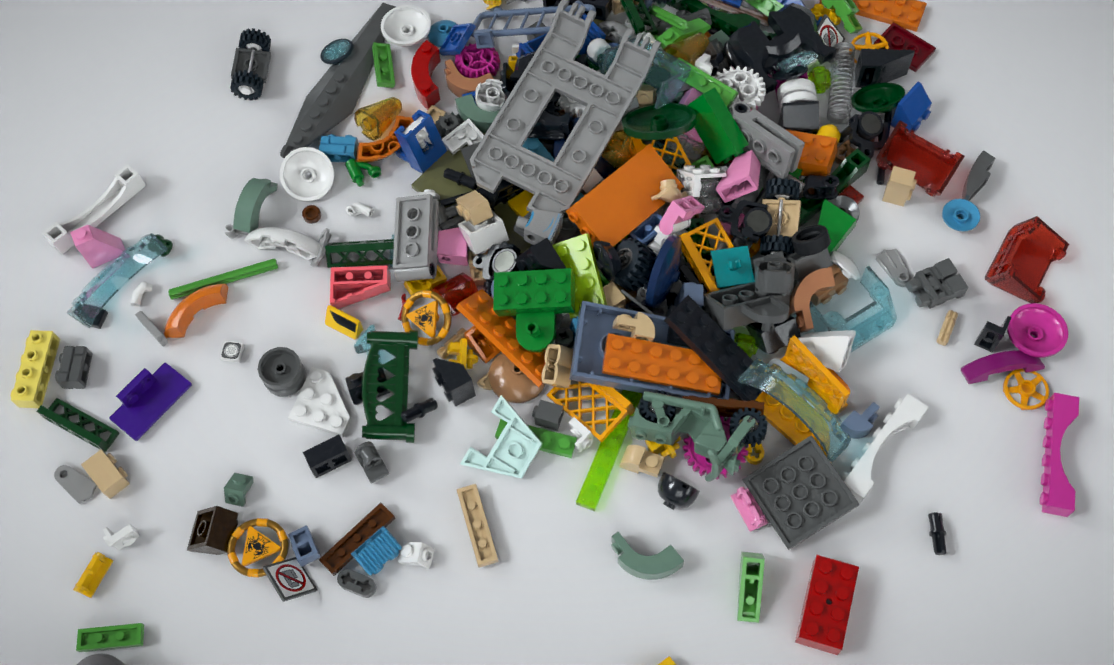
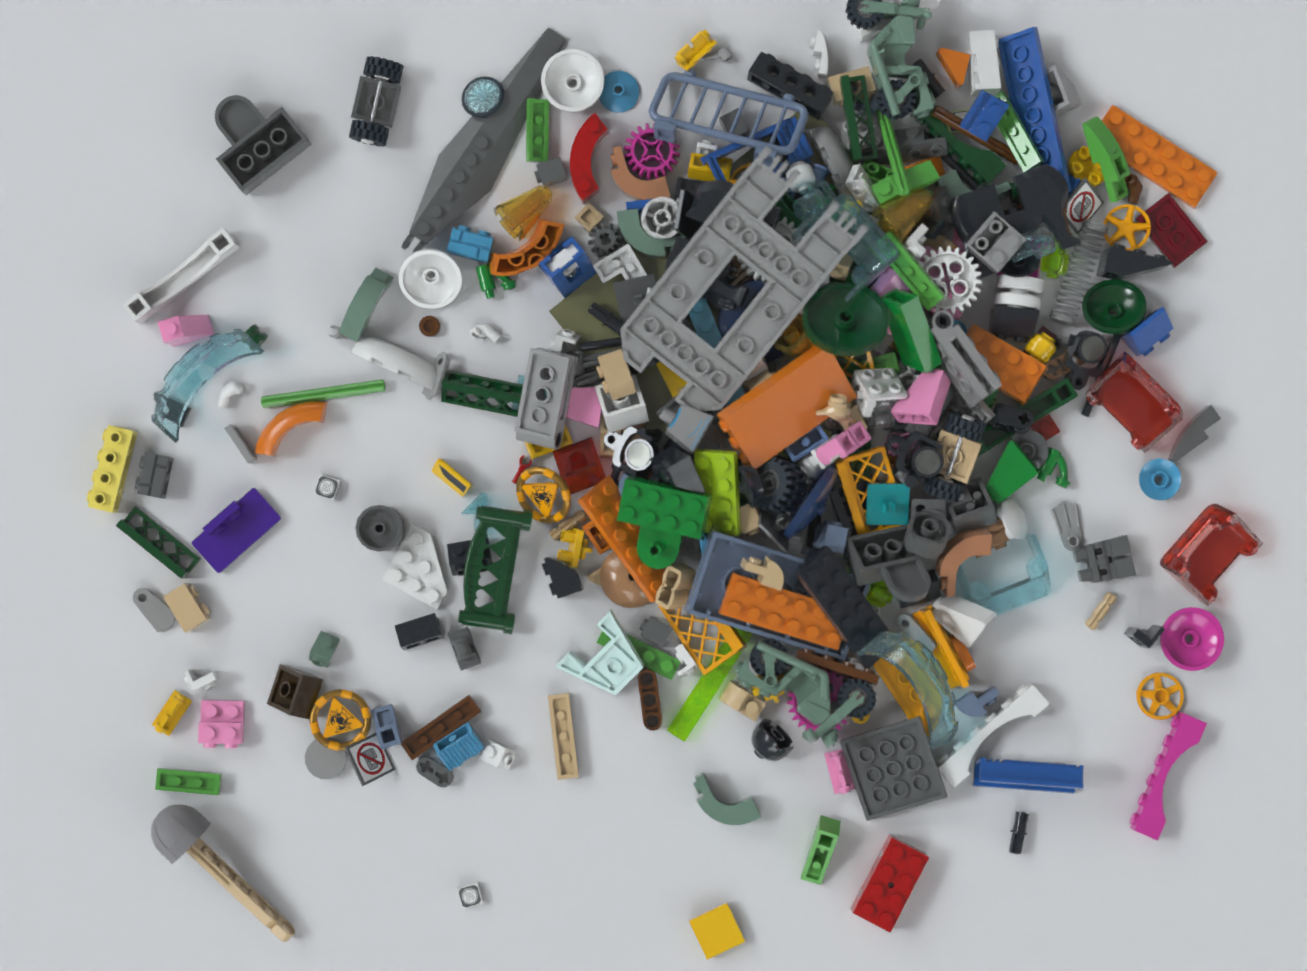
camera: 10 degrees right, 25 degrees up
(142, 575) = (221, 723): none -> bright pink plate
(156, 107) = (257, 144): none -> dark grey brick
(247, 592) = (323, 761): none -> light grey tile
(358, 283) = (473, 435): coral wedge -> none
(398, 88) = (550, 172): none -> dark grey brick
(419, 410) = (521, 601): black axle -> none
(457, 39) = (632, 116): blue plate -> none
(554, 466) = (654, 709): none -> reddish brown beam
(767, 54) = (995, 242): none -> light grey slope
(811, 240) = (979, 509): black tyre -> none
(861, 226) = (1054, 457): none -> green plant
(865, 22) = (1135, 188): none -> reddish brown arm
(899, 186) = (1101, 433): tan brick -> none
(929, 474) = (1028, 775): none -> blue piece
(1000, 362) = (1139, 667): magenta slope -> none

